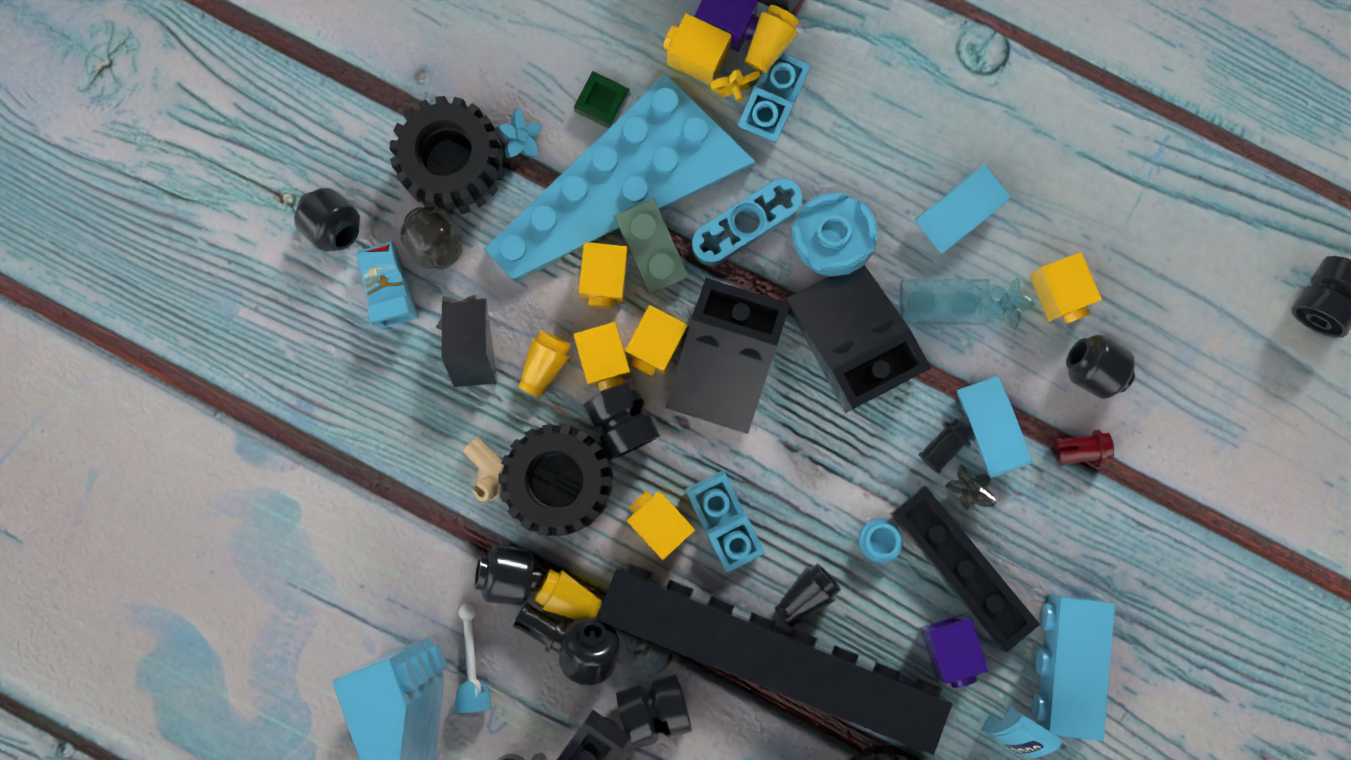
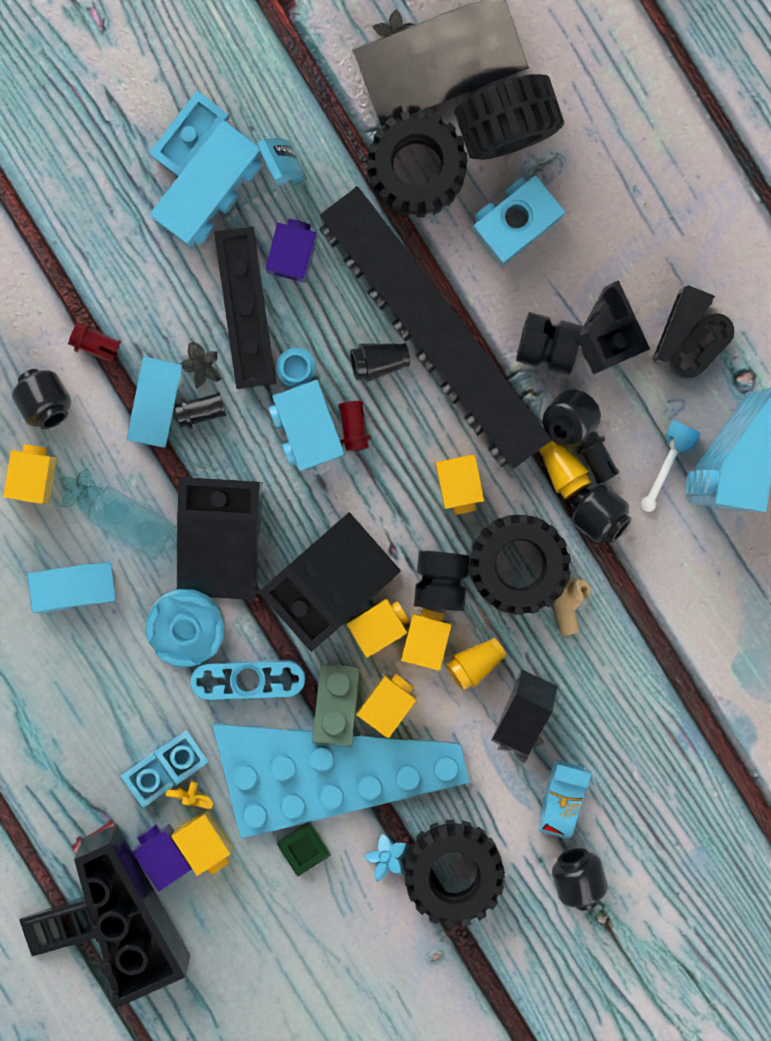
camera: 150 degrees left, 5 degrees up
(432, 237) = (505, 815): clear smoke head -> none
(724, 521) = (408, 454): medium azure slope -> none
(771, 38) = (141, 814): yellow cone -> none
(792, 517) = (354, 426): none -> dark red pin
(837, 491) = (307, 426): none -> medium azure brick
(1125, 706) = (188, 133): none -> medium azure plate

